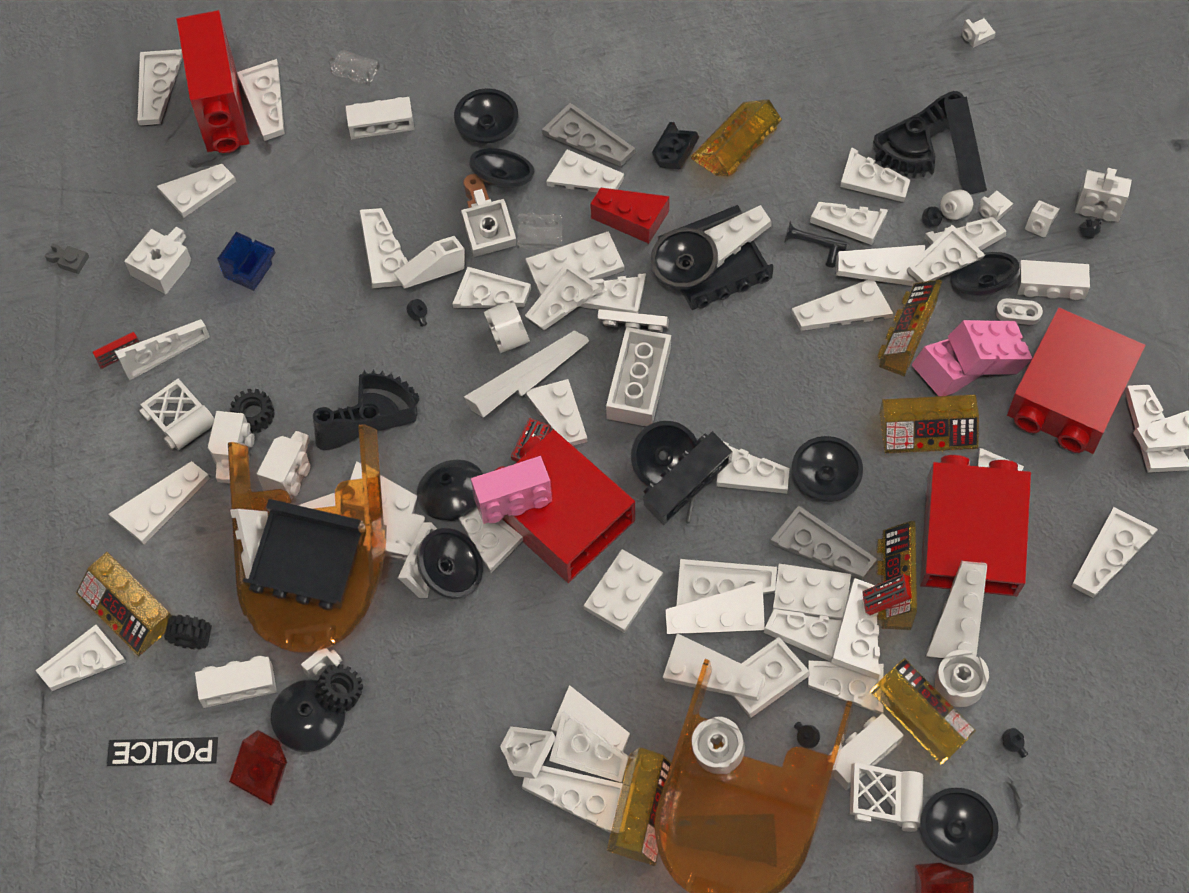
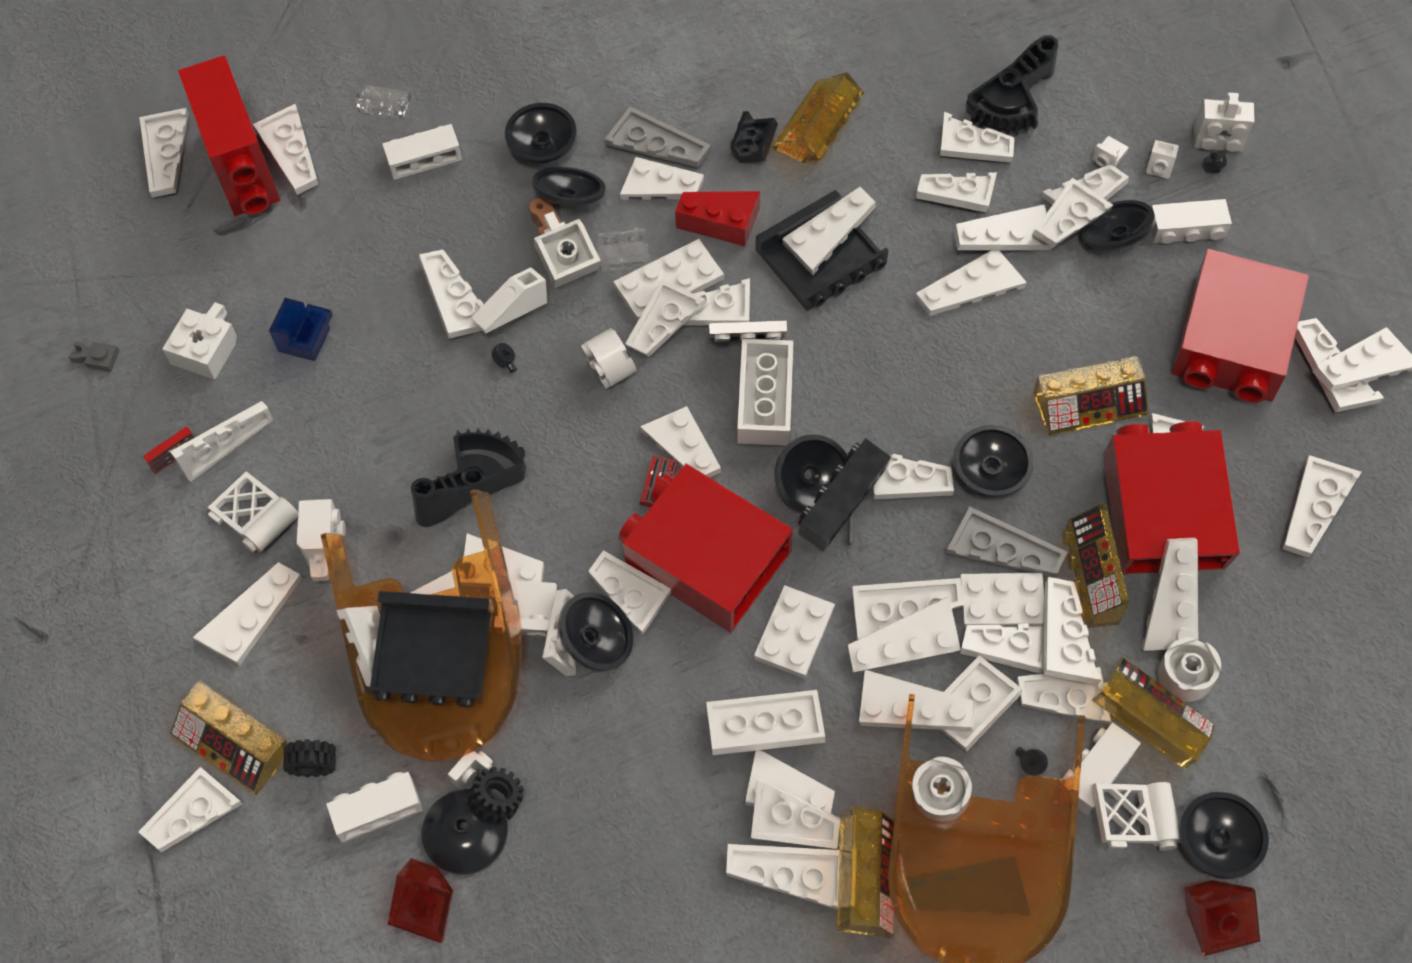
camera: 10 degrees left, 0 degrees up
(162, 751) = (303, 901): black sticker -> none
(197, 188) = (229, 258): white wing -> none
(250, 399) = (338, 481): black tyre -> none
(285, 464) = (388, 549): white hinge -> none
(447, 489) = (587, 555): black dish -> none
(489, 290) = (580, 322): white wing -> none
(512, 490) = (655, 538): bright pink piece -> none
(524, 375) = (637, 409): white slope -> none
(526, 750) = (724, 830): white plate -> none
(581, 664) = (765, 722): none -> white plate
(681, 248) = (789, 243): black dish -> none
(833, 244) = (938, 216): black piece -> none
(887, 594) = (1090, 589): tile -> none
(909, 327) = (1048, 293): slope -> none
(932, 216) = (1046, 173): black piece -> none
(941, 368) = (1102, 327): bright pink slope -> none
(956, 204) = (1069, 156): white head -> none
(965, 145) = (1067, 92): black sticker -> none
(989, 347) = (1141, 302): bright pink piece -> none
(1014, 741) = (1260, 730): black piece -> none
(1018, 311) = (1159, 260): white plate -> none

